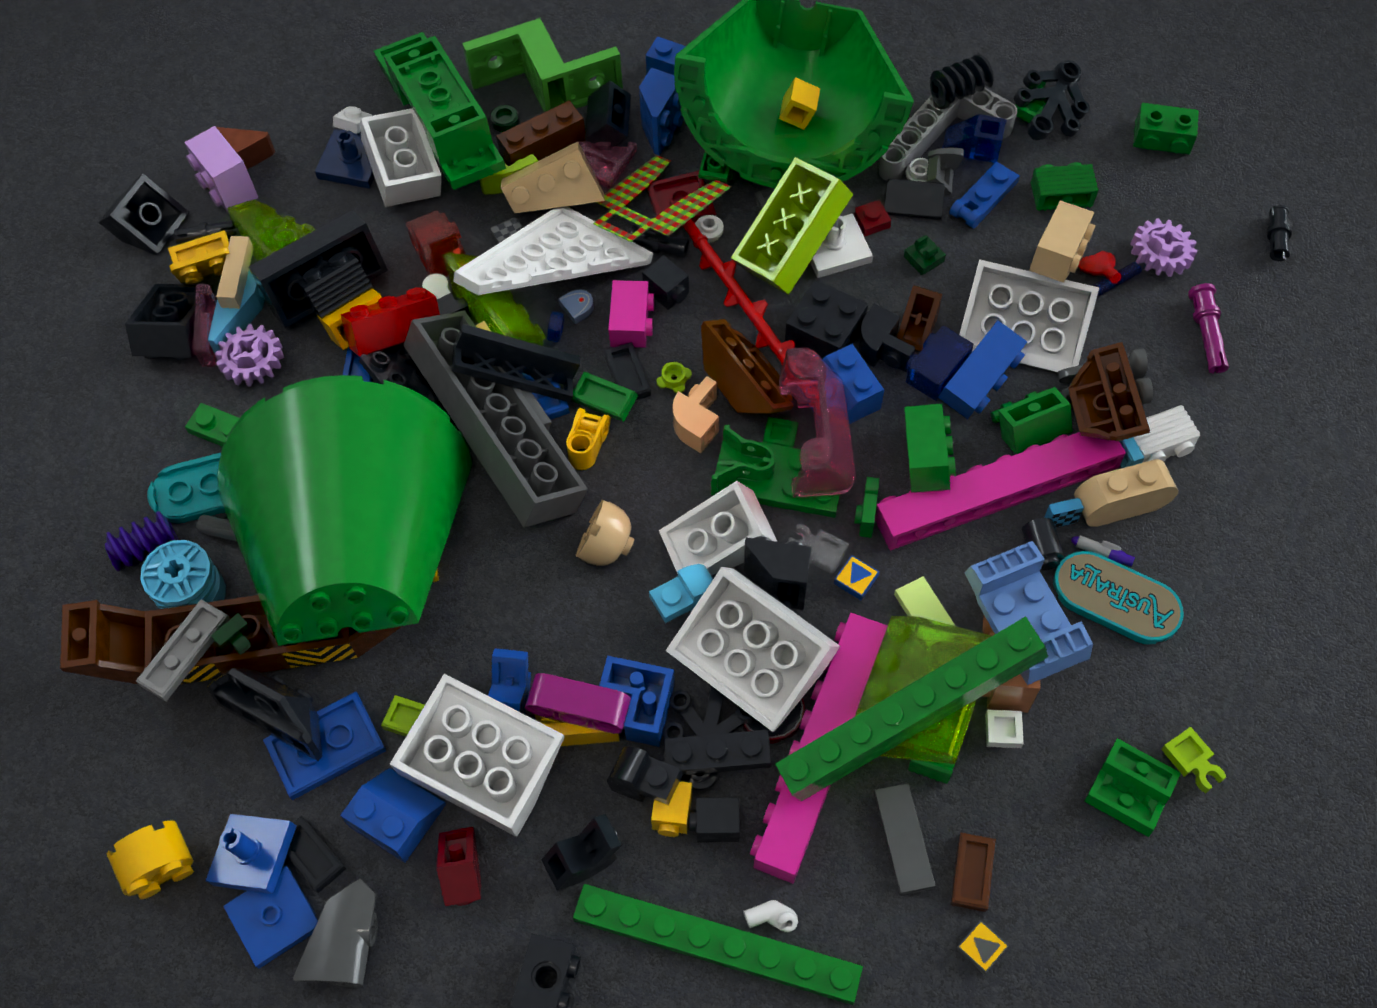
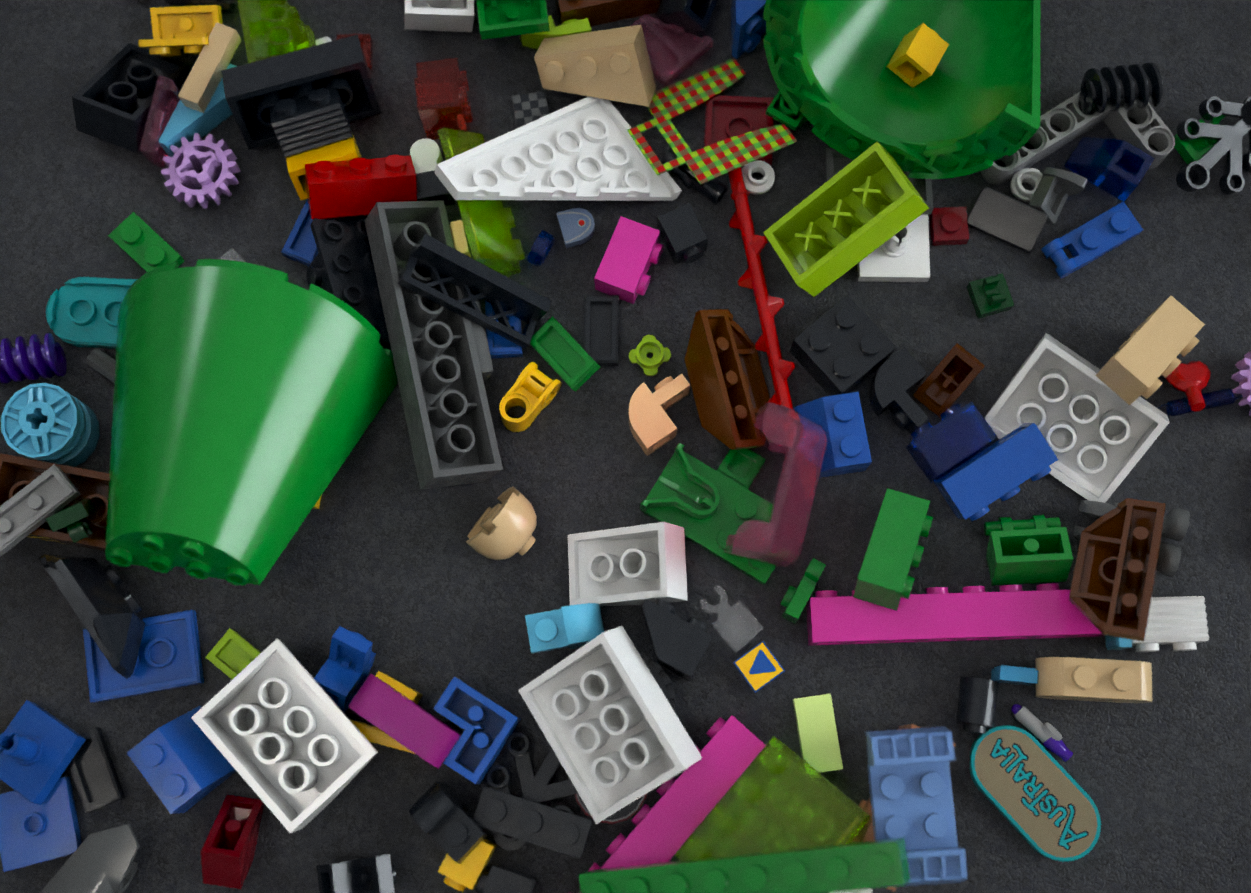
camera: 20 degrees right, 15 degrees up
(1068, 183) = (1190, 262): green brick -> none

